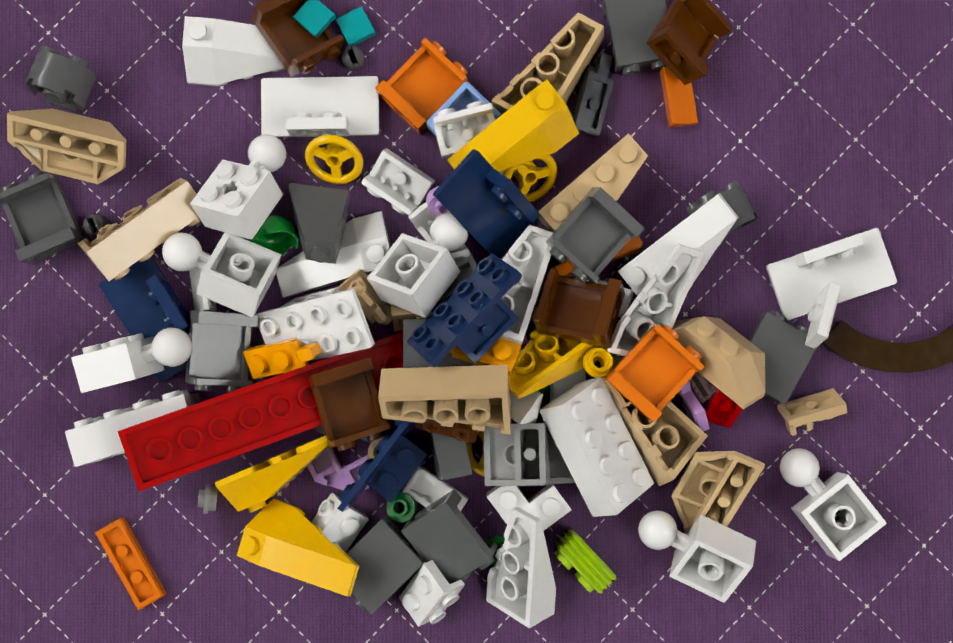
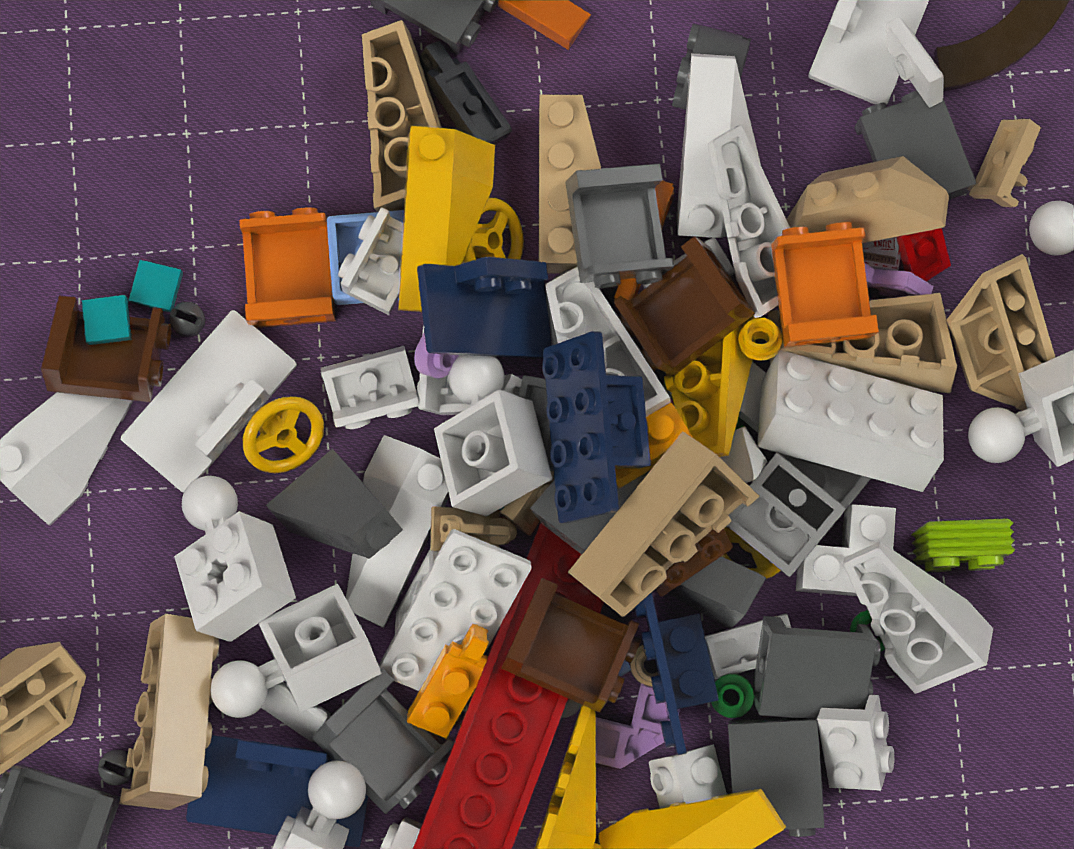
camera: 55 degrees left, 5 degrees down
(277, 234) = (311, 568): green hair -> none

